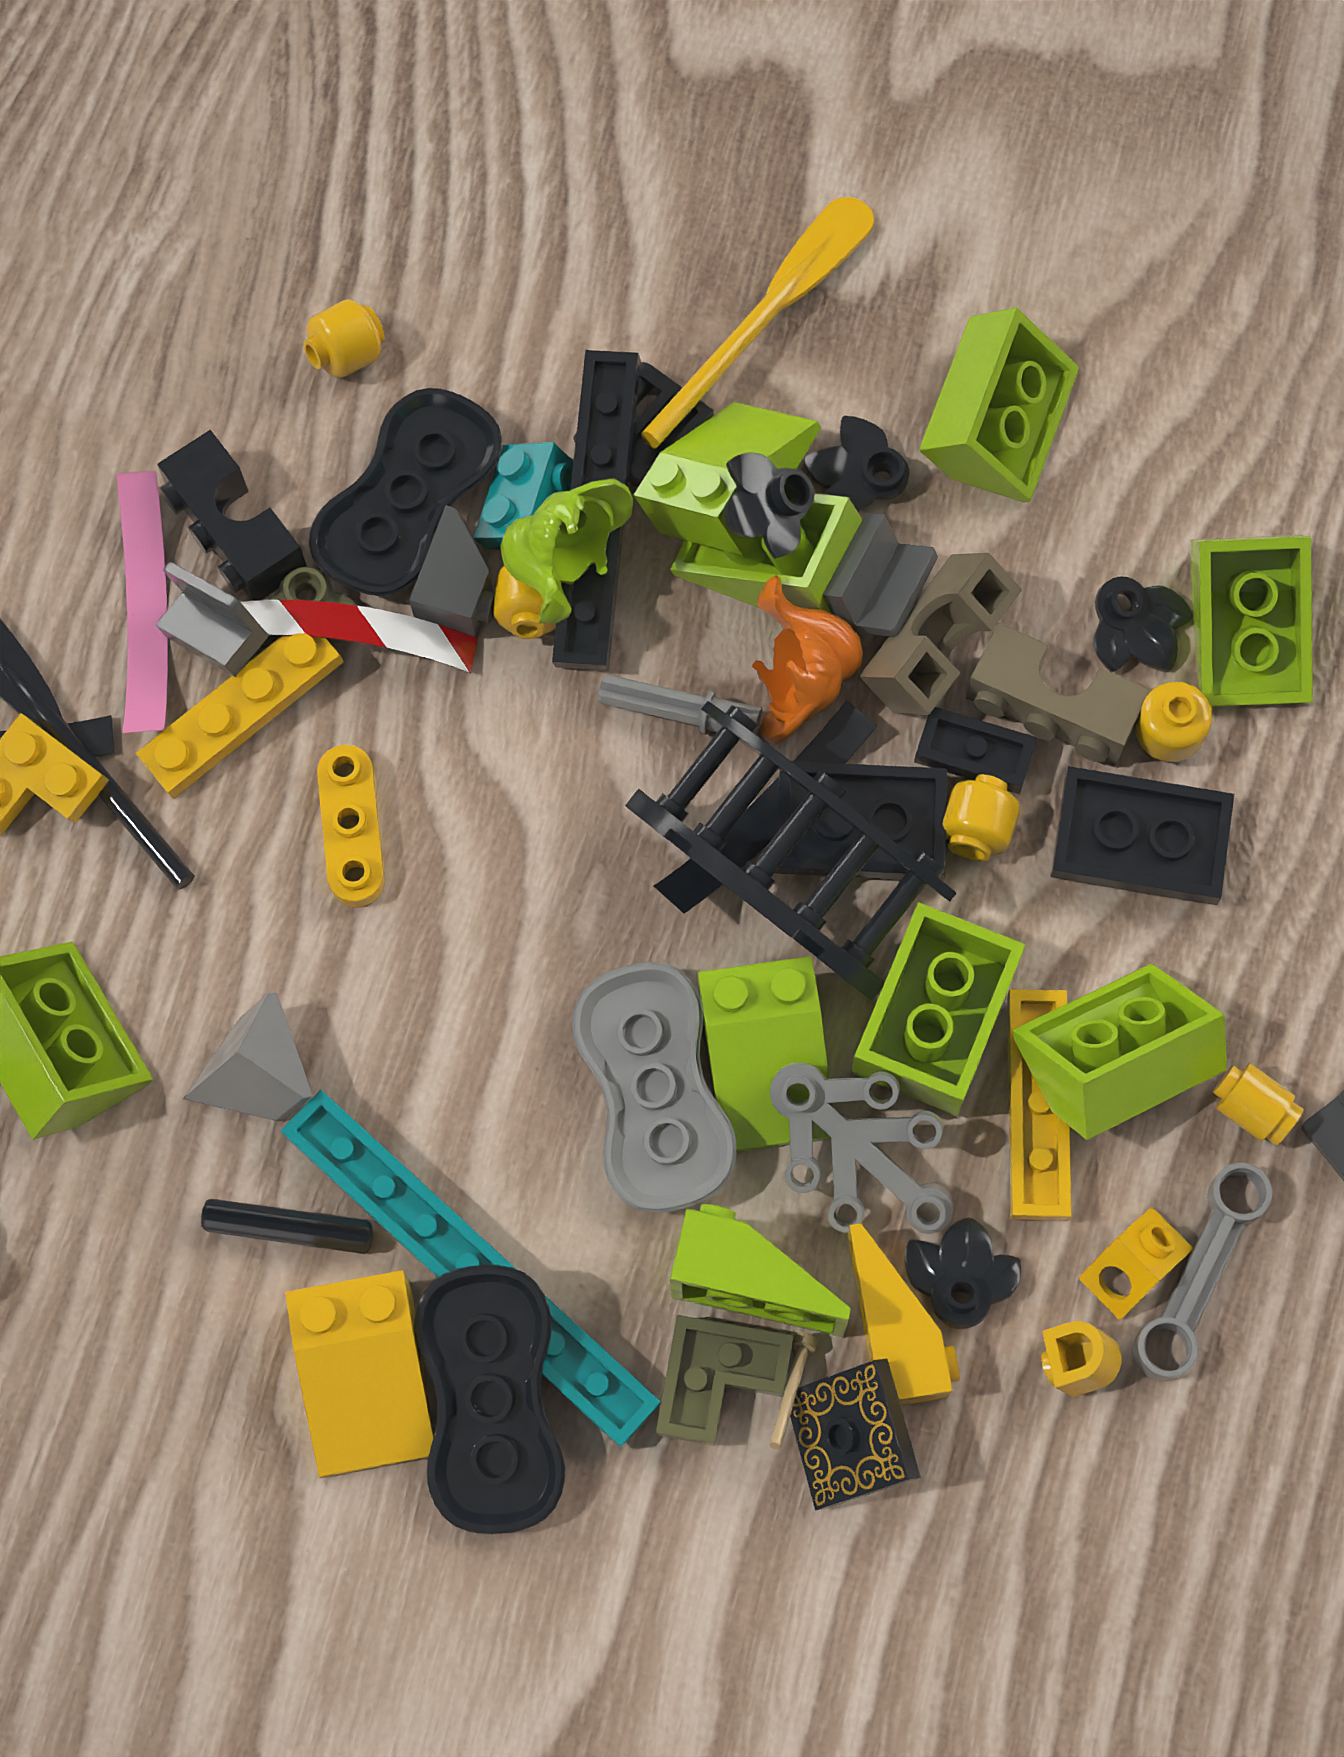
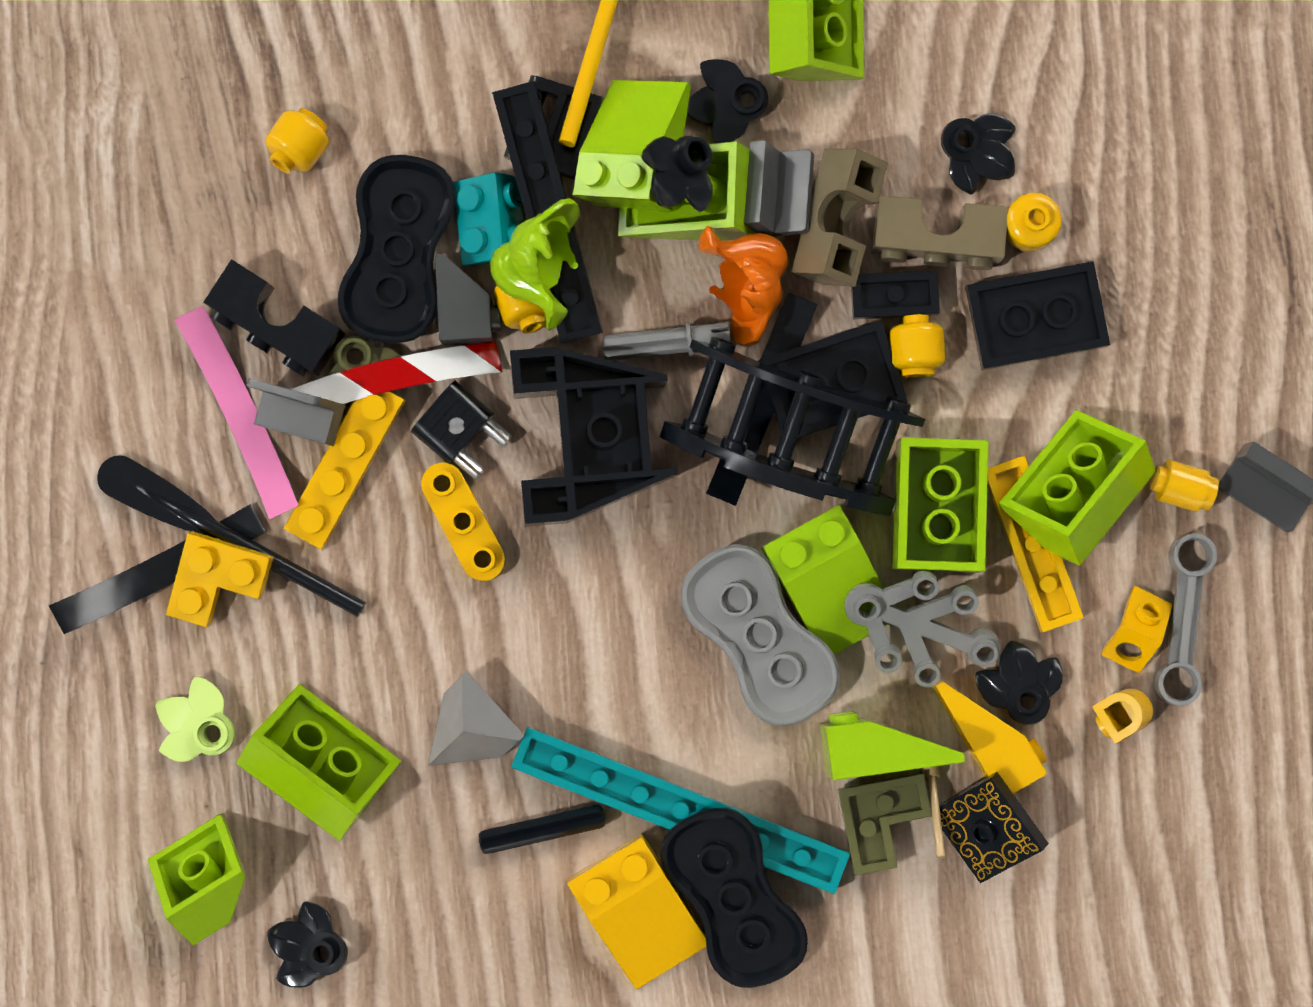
camera: 20 degrees left, 15 degrees up
(388, 710) = (454, 423): none -> black piece
(553, 775) = (600, 432): none -> black wedge
(1253, 619) = (1061, 115): lime slope -> none

